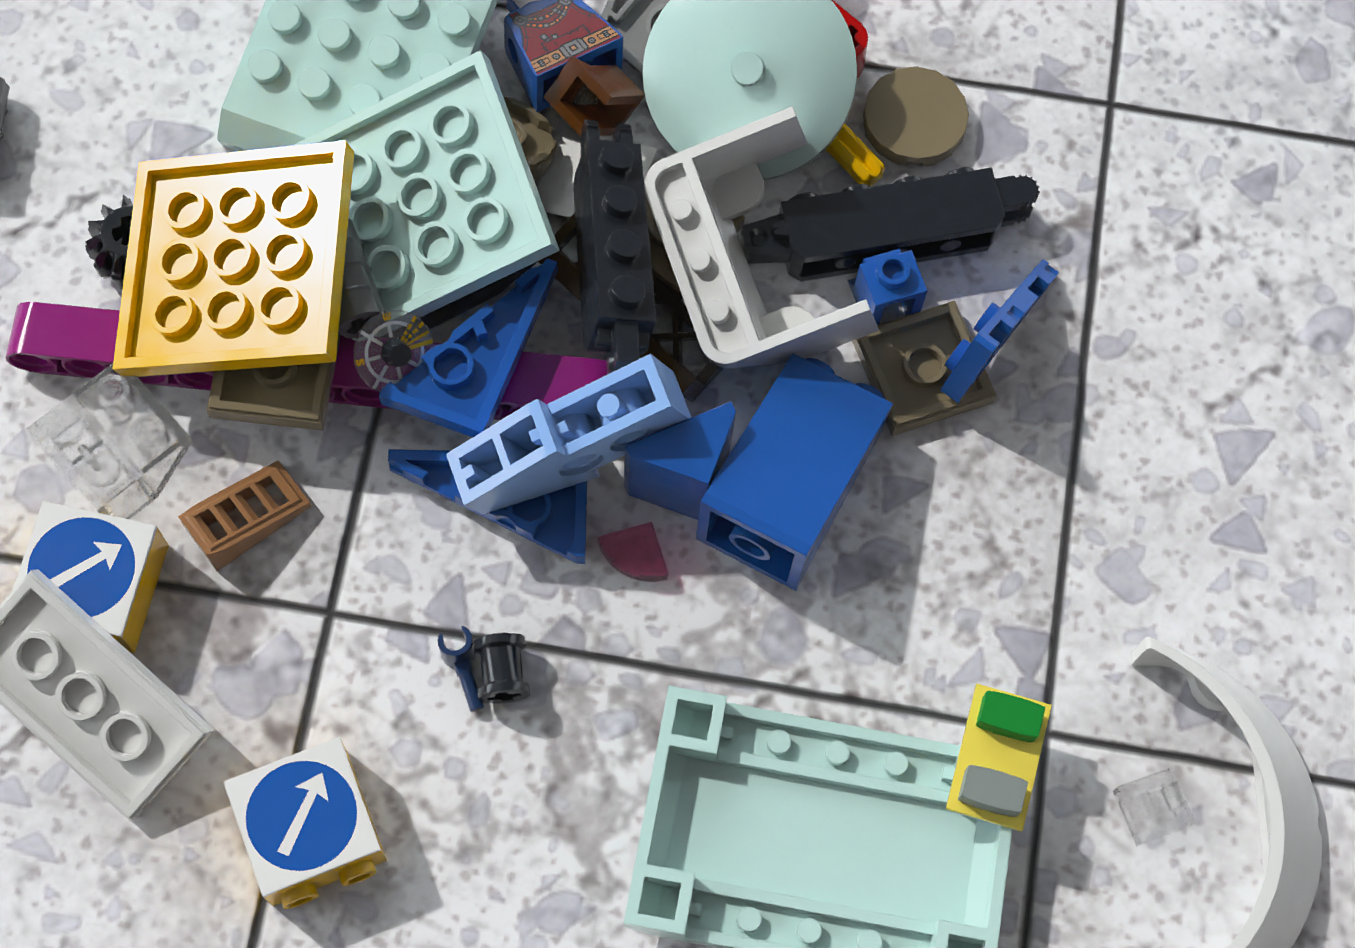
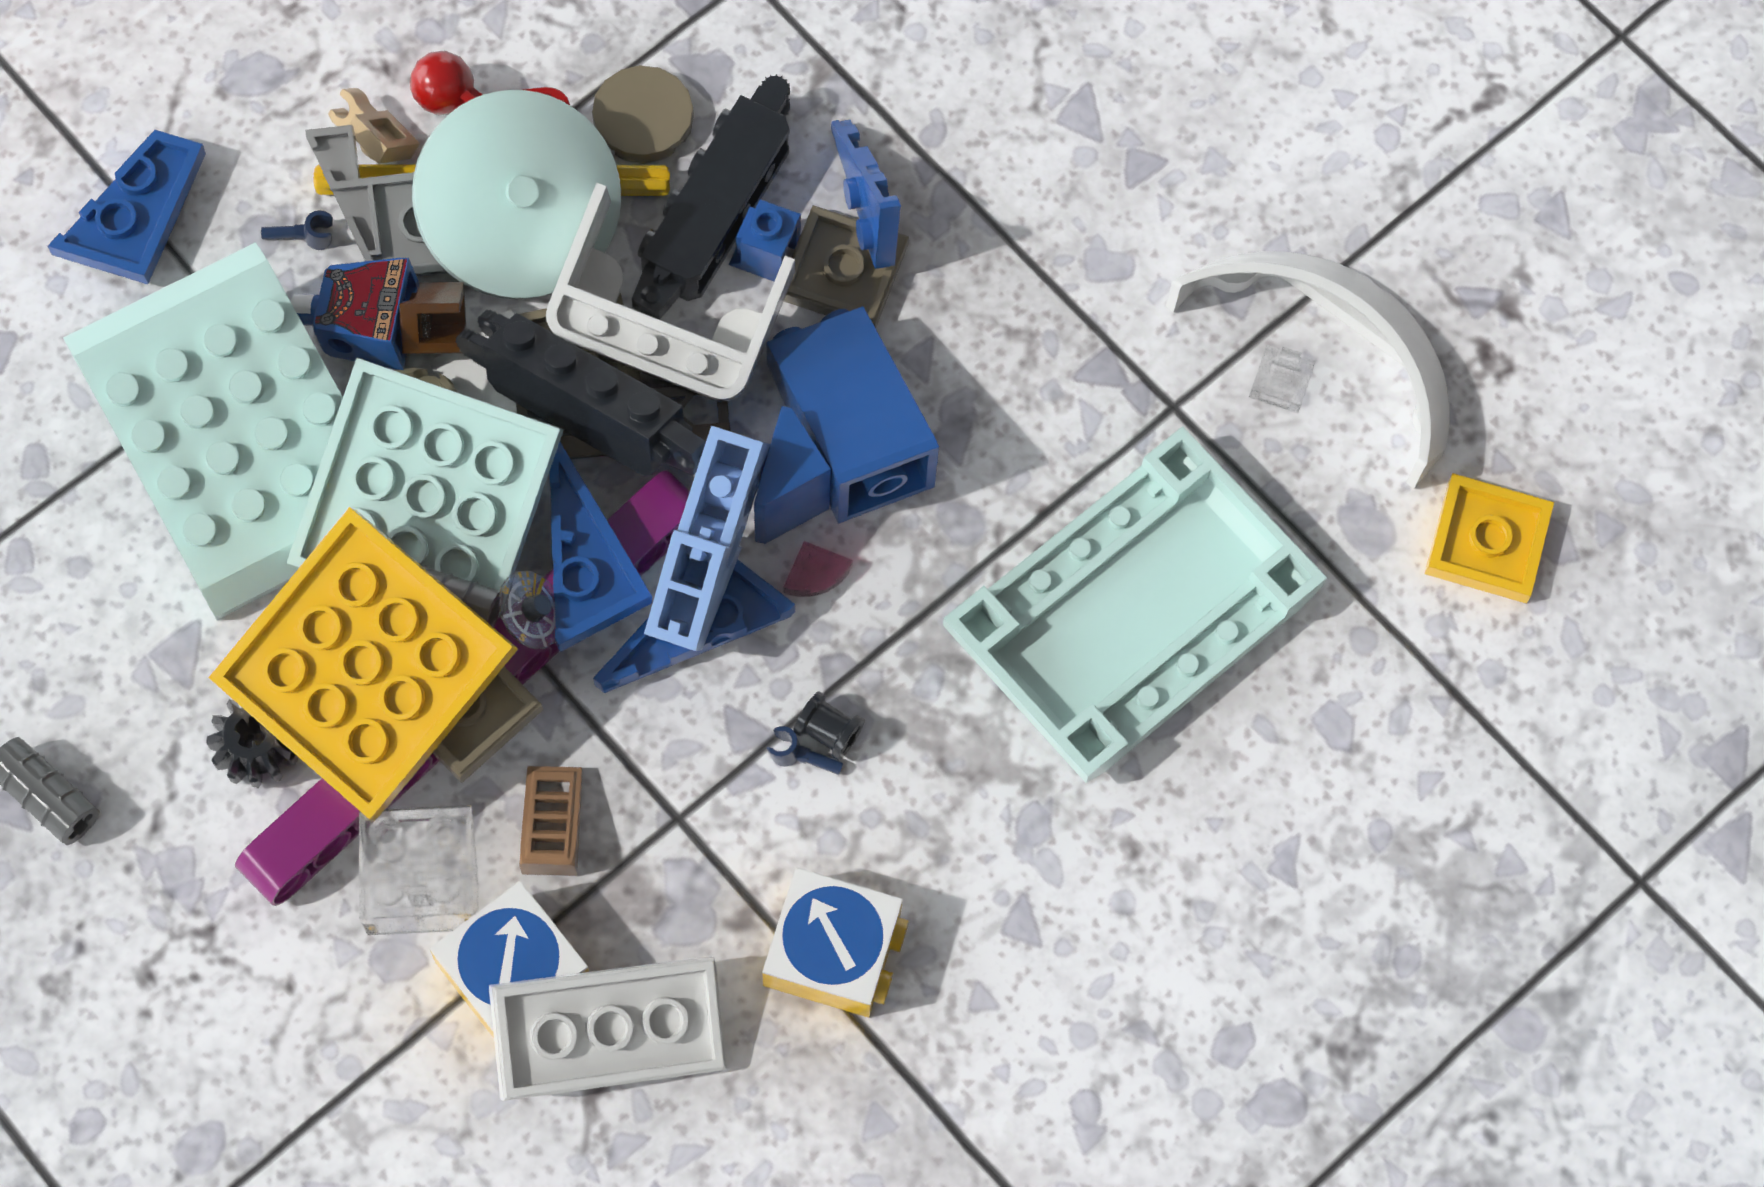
camera: 50 degrees left, 0 degrees up
(998, 757) = (1174, 443): piece -> none

